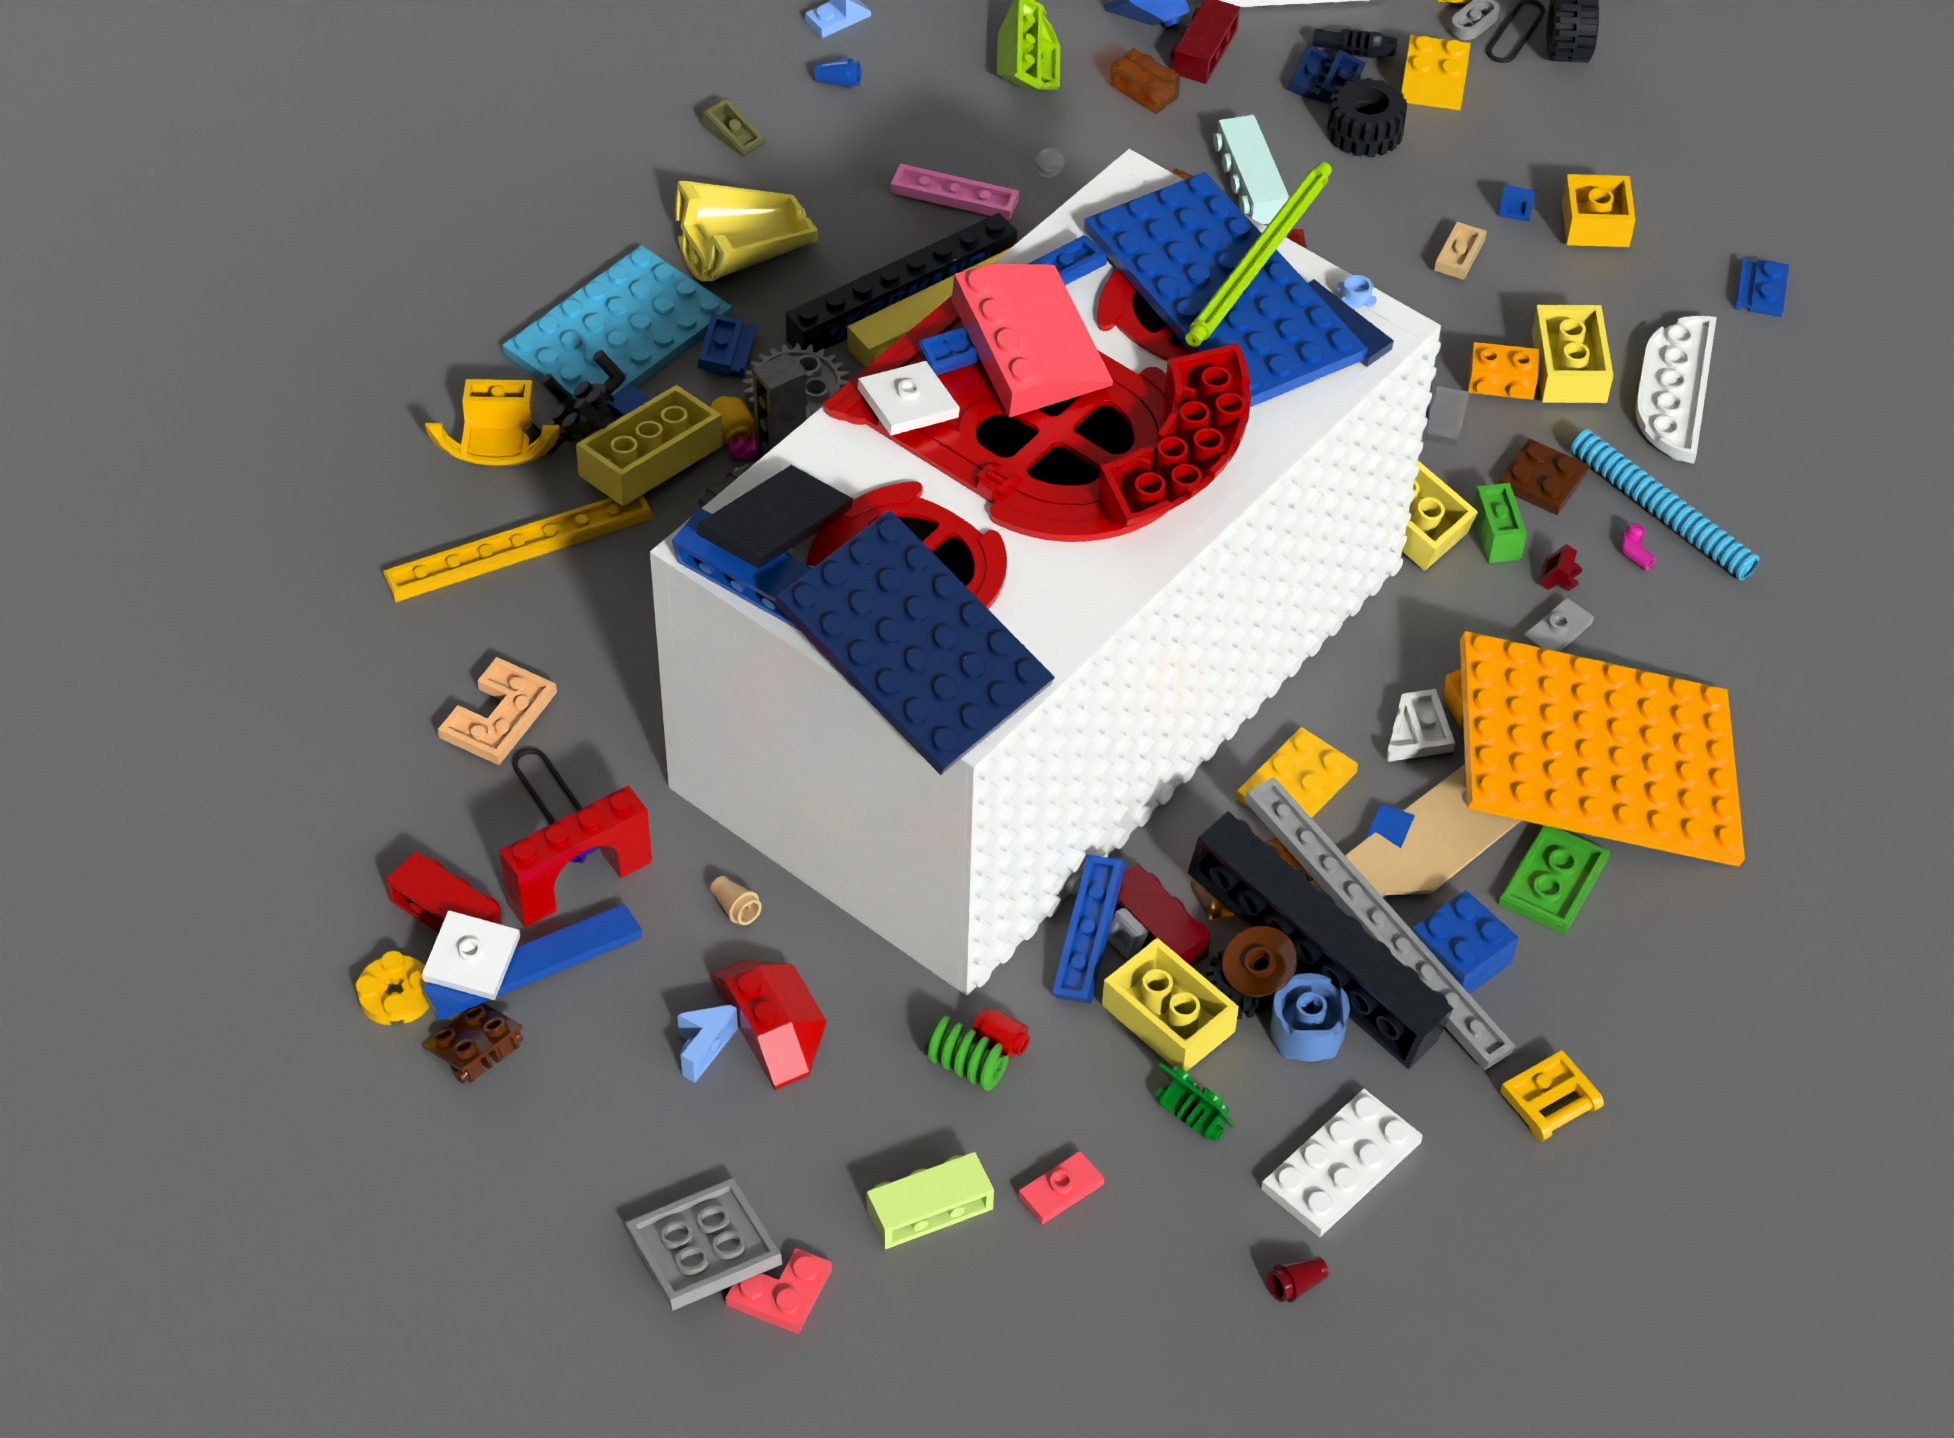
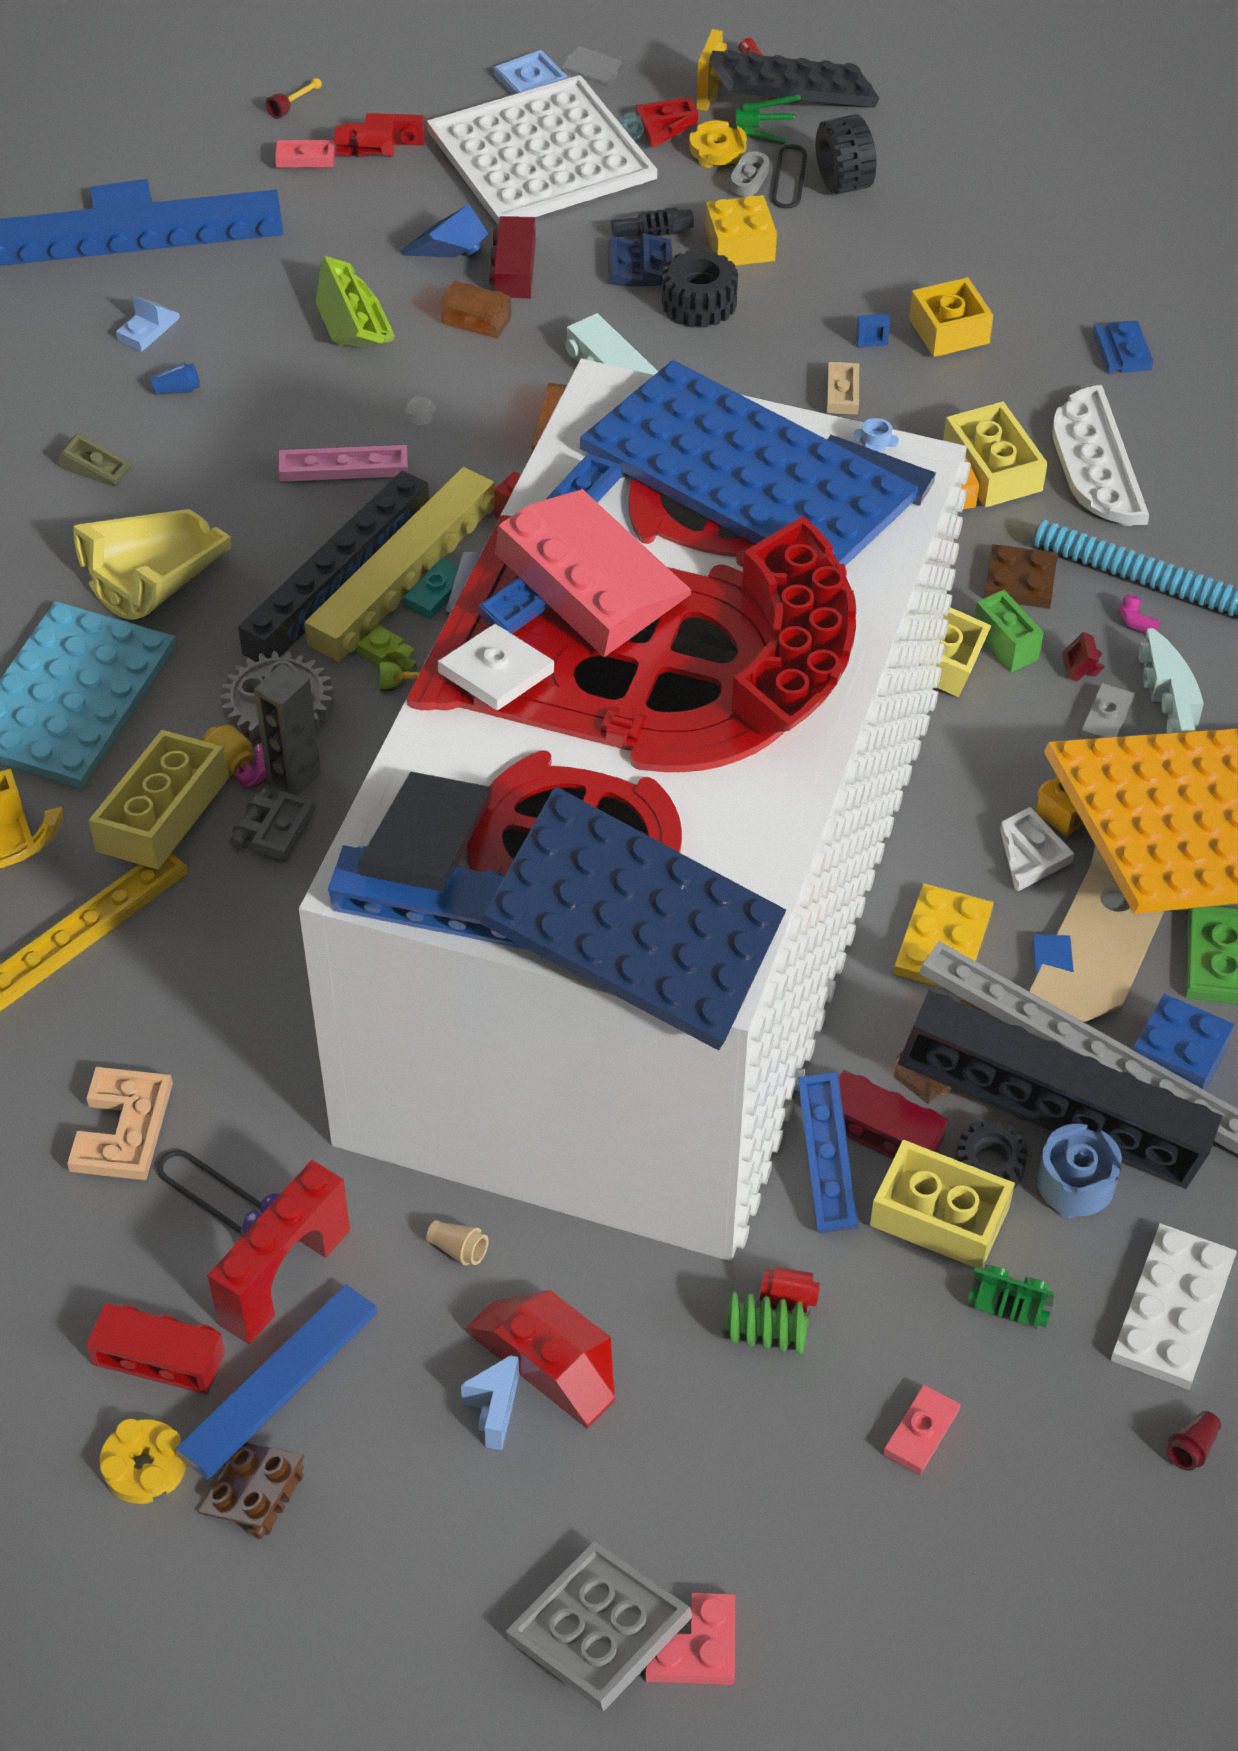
camera: 20 degrees left, 0 degrees up
(471, 955) = (216, 1396): white plate -> none
(584, 409) = (75, 782): black plate -> none
(626, 401) = (112, 763): blue tile -> none
(727, 345) = (188, 676): blue plate -> none
(929, 1200) = (802, 1490): yellowish green brick -> none
(1127, 933) = (864, 1144): light grey tile -> none
(1255, 947) = (1010, 1112): reddish brown dish -> none
(1258, 254) = (757, 509): lime piece -> none
(1632, 617) = (1170, 682): none -> light aqua slope

